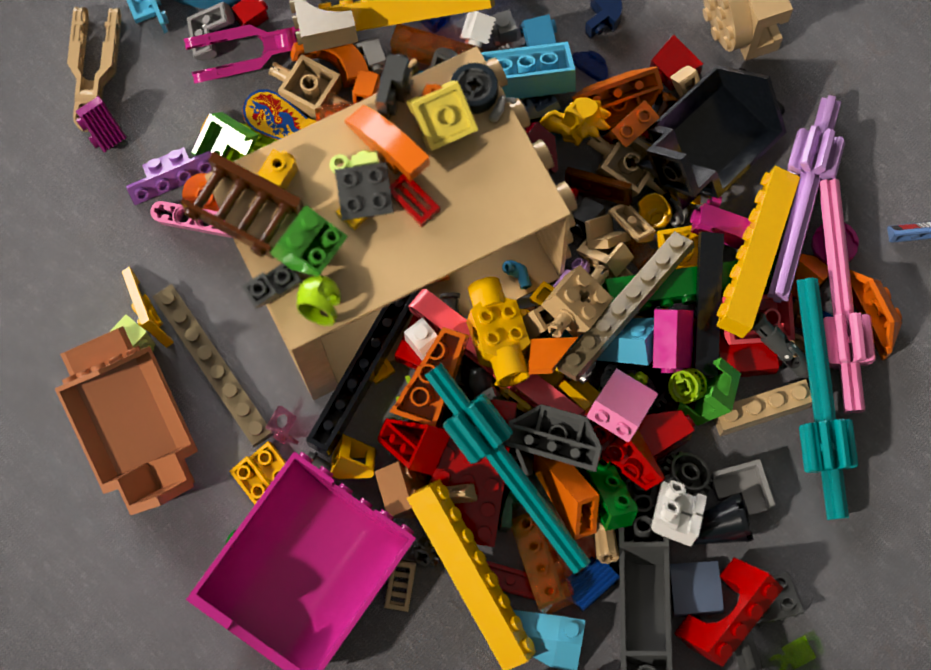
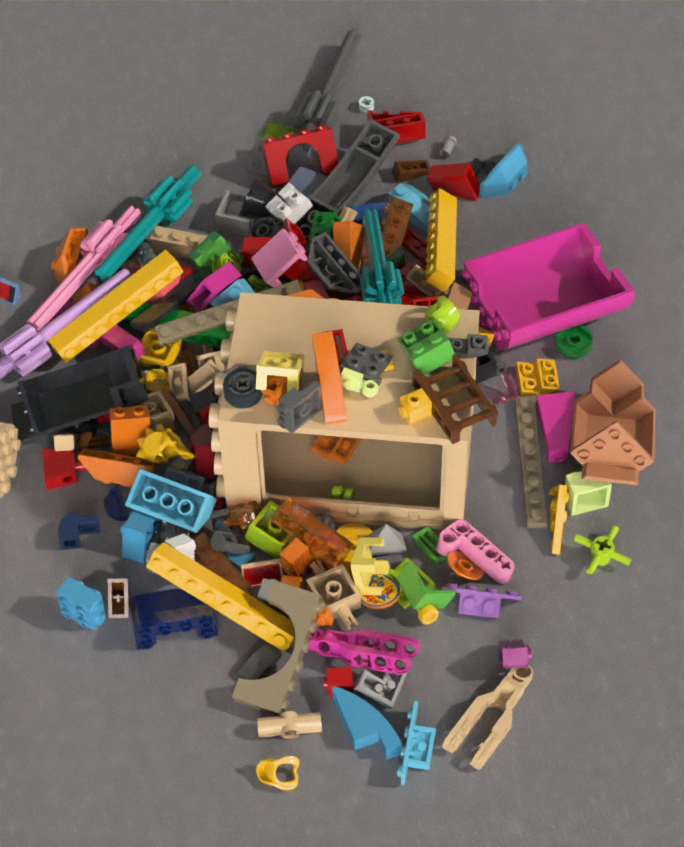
camera: 150 degrees left, 20 degrees down
(83, 298) = (602, 550): none -> lime bar
(209, 425) = (555, 421): none -> dark pink slope
(288, 105) = (364, 566): none -> light yellow panel

